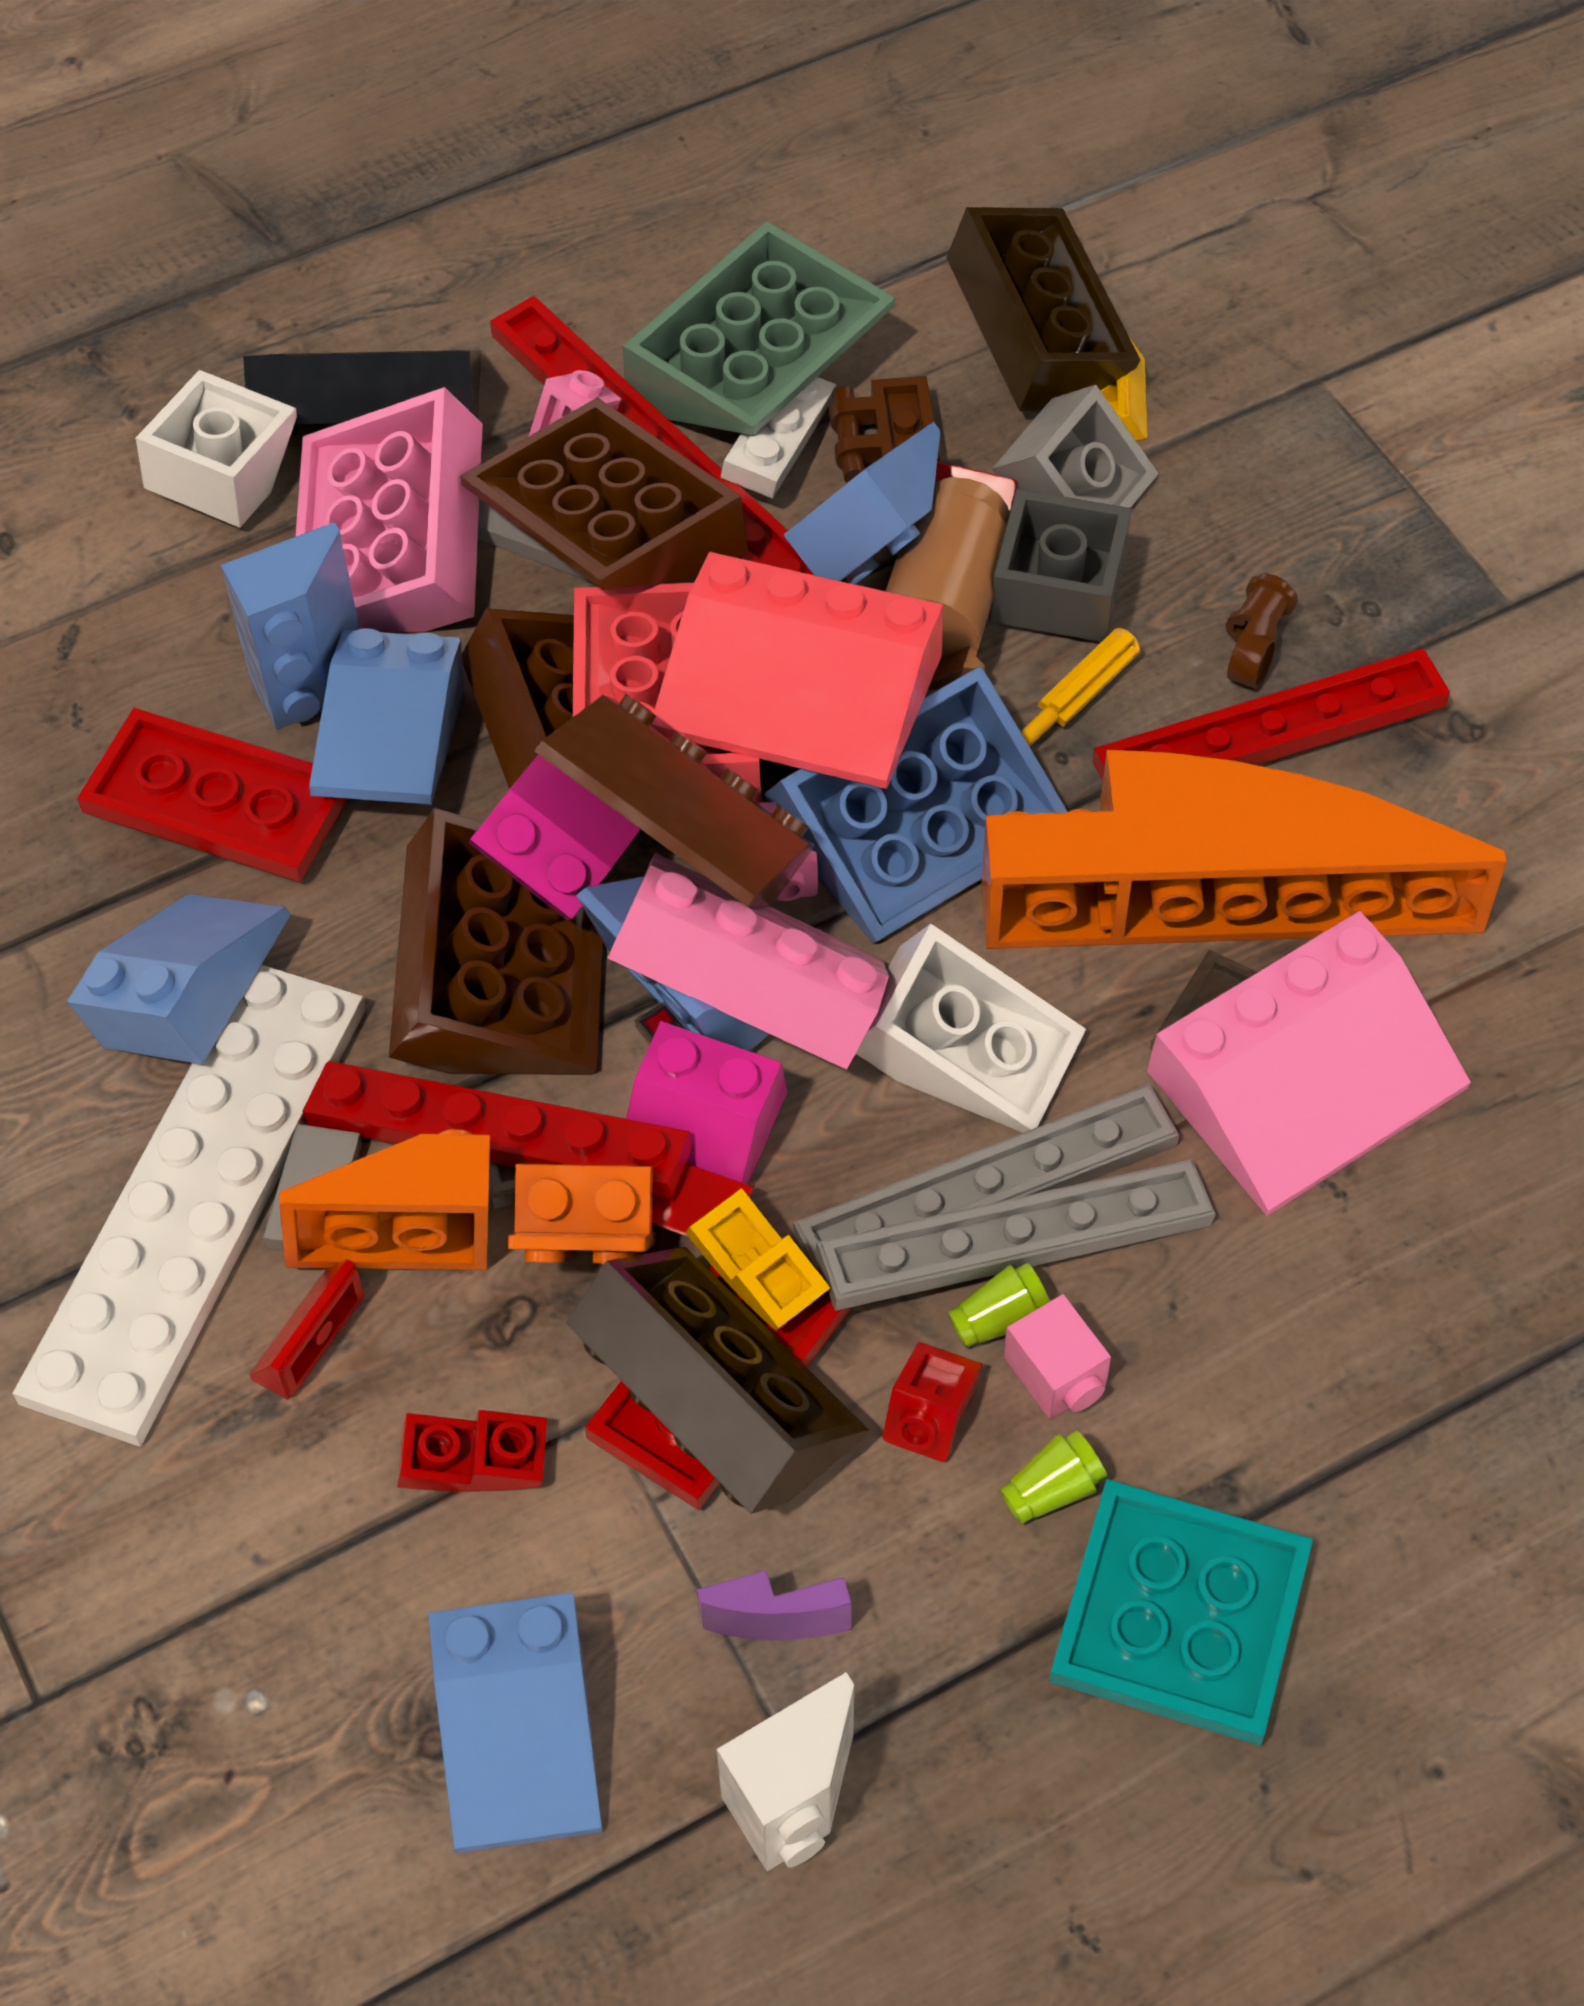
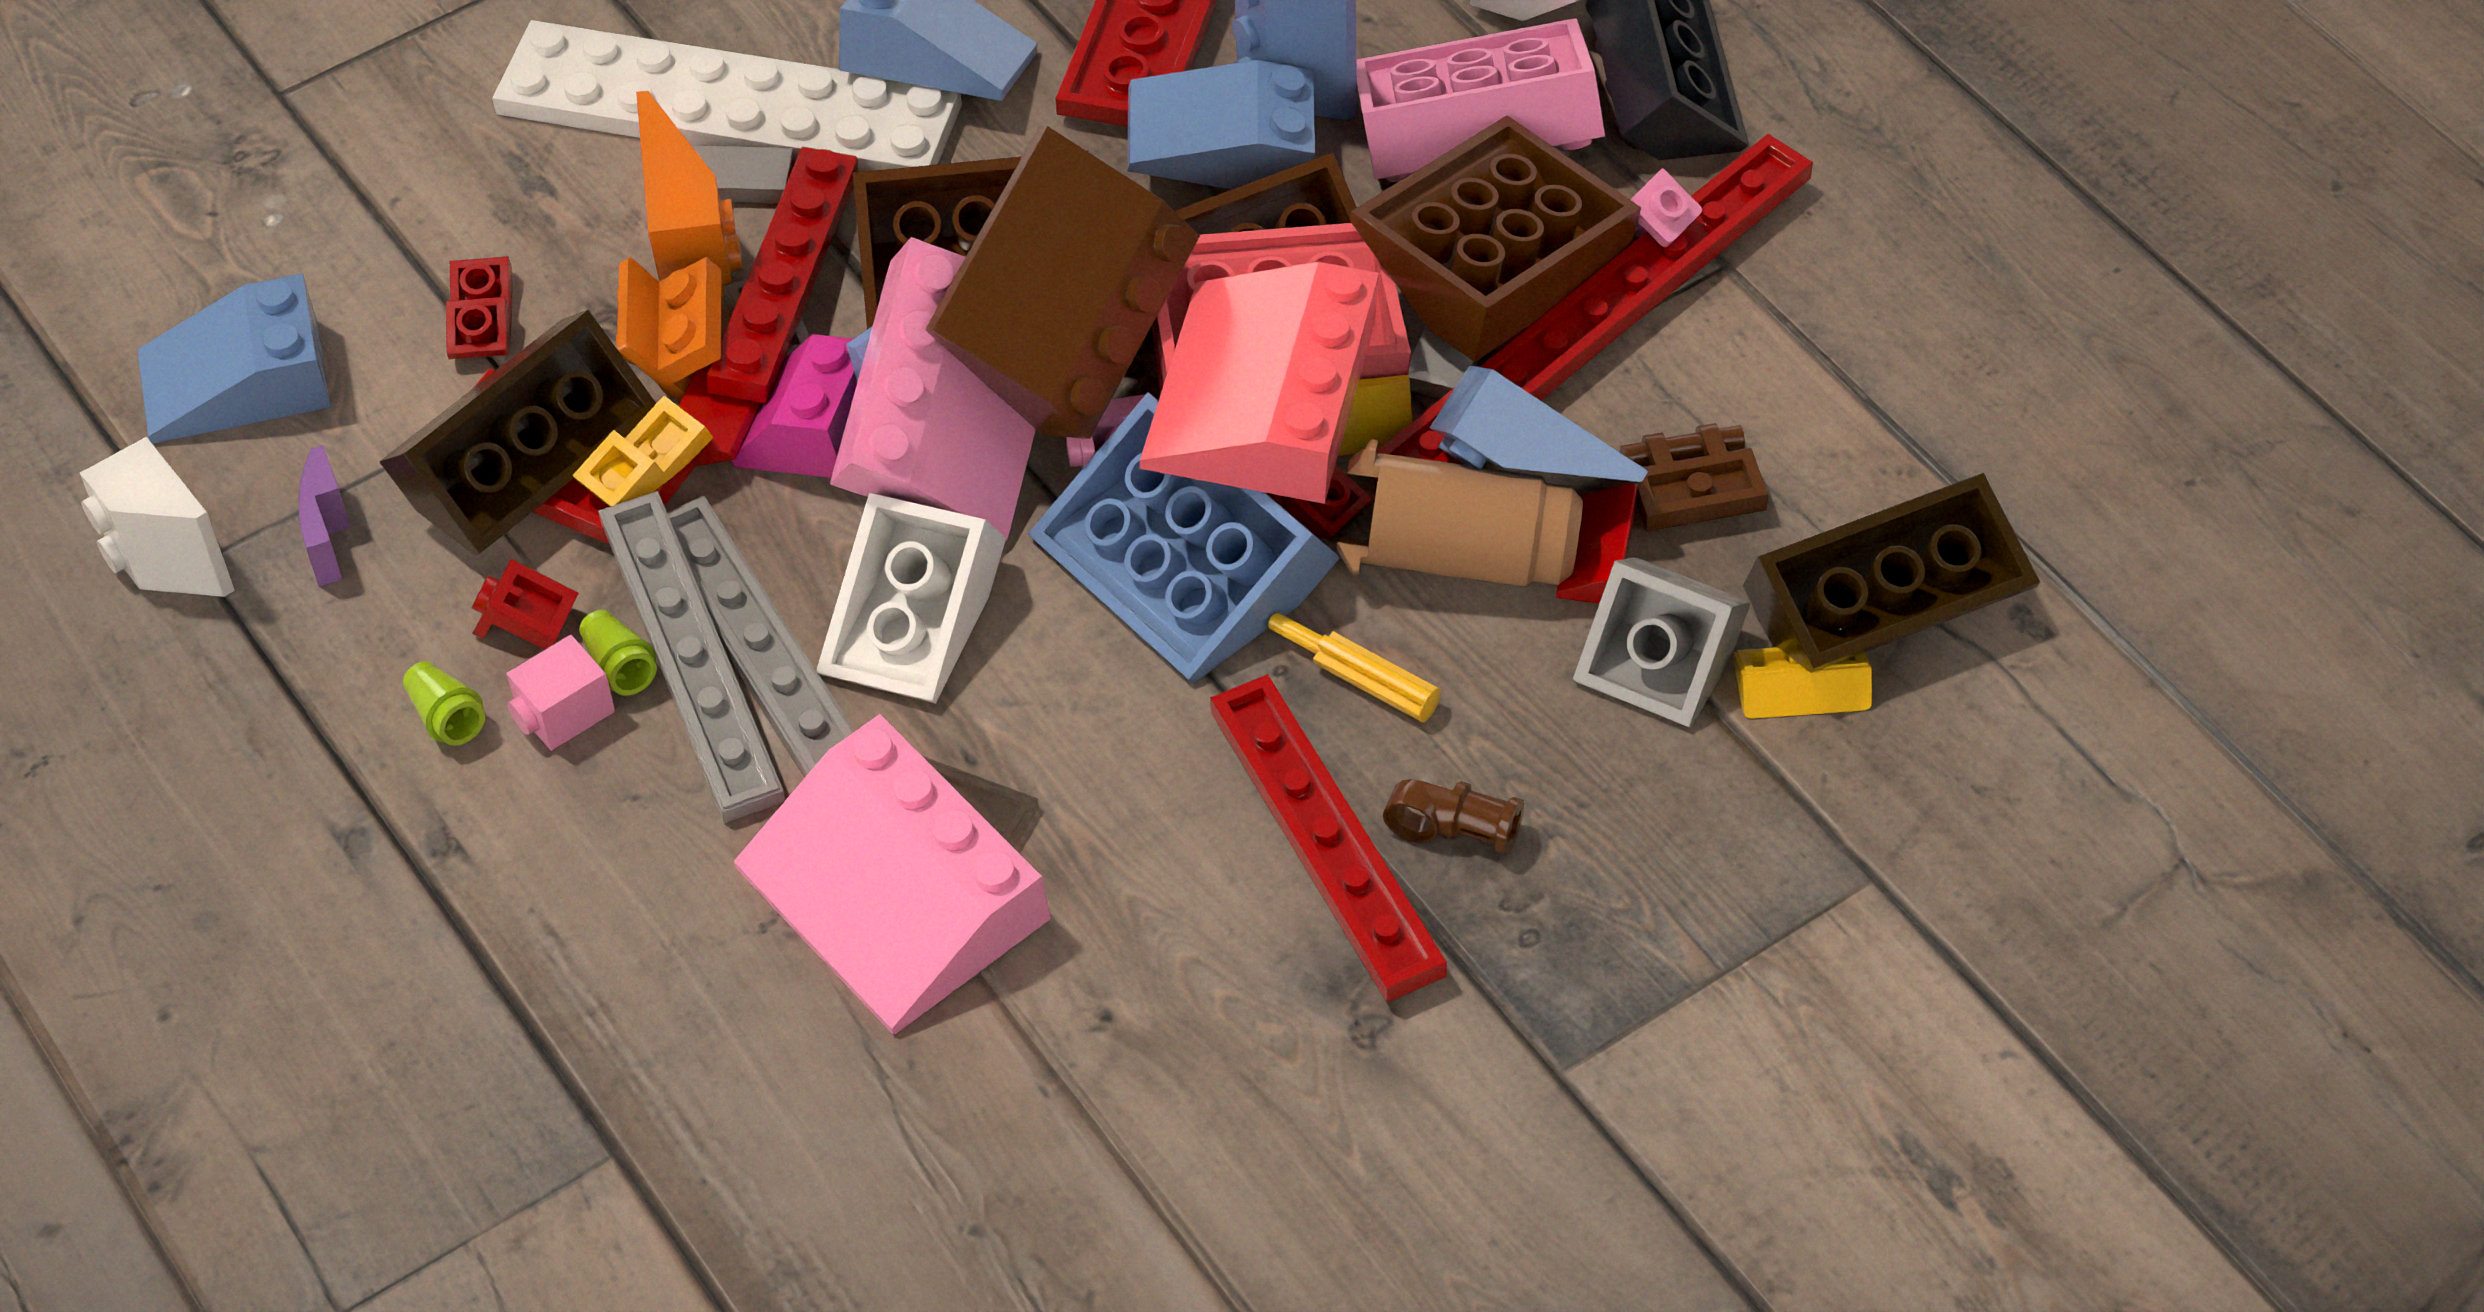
camera: 85 degrees right, 5 degrees down
(310, 1330) = (588, 189): red slope -> none
(751, 333) = (1780, 328): sand green slope -> none
(767, 457) = (1664, 380): white plate -> none
(1060, 565) = (1502, 622): dark grey brick -> none
(1182, 1612) = (312, 804): teal plate -> none
(1226, 856) = (1122, 766): orange slope -> none

